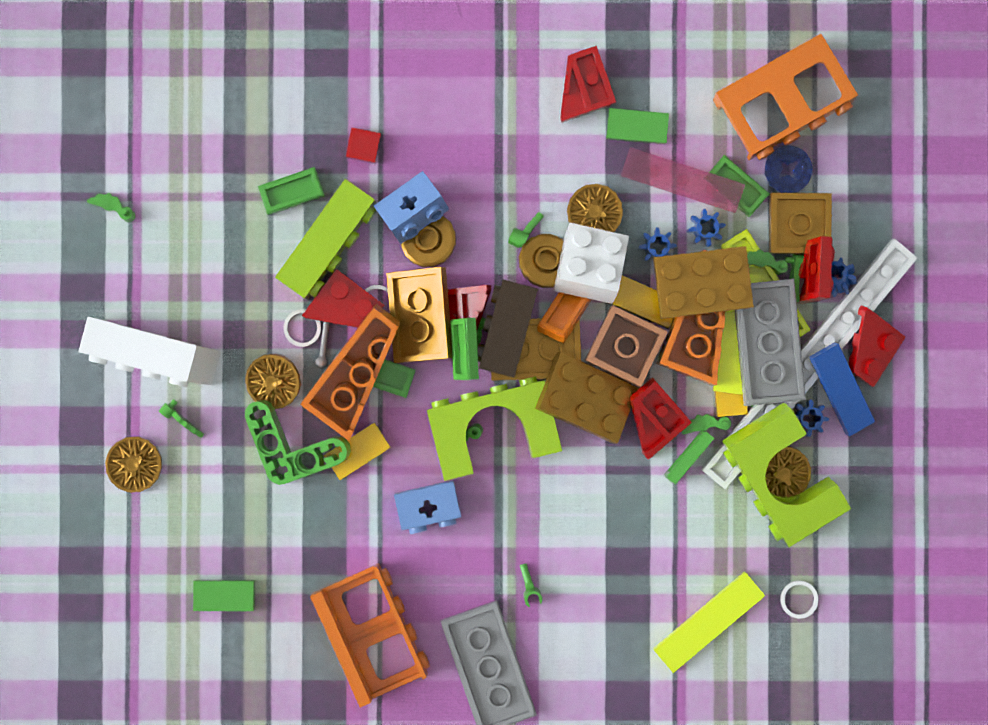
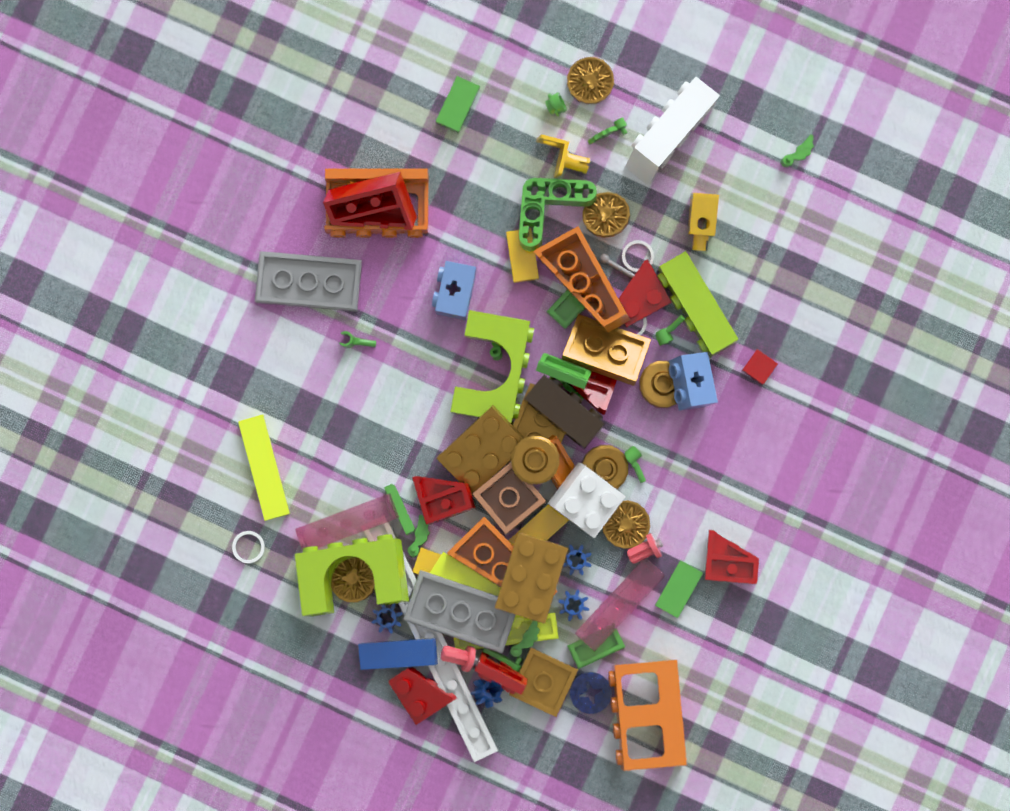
camera: 125 degrees right, 5 degrees down
(176, 489) = (555, 104): none -> bright green plate
(218, 280) = (706, 207): none -> yellow torso
(232, 452) = (565, 159): none -> yellow bracket
(291, 191) = (749, 295): bright green tile -> none
(374, 639) = (374, 202): none -> red wedge
(375, 260) = (664, 335): none -> bright green hand
(575, 335) = (535, 460): none -> pearl gold wheel
(612, 178) = (645, 549): none -> coral piece
(729, 505) = (348, 522): none -> clear pink tile
(815, 316) = (465, 658): none -> coral piece

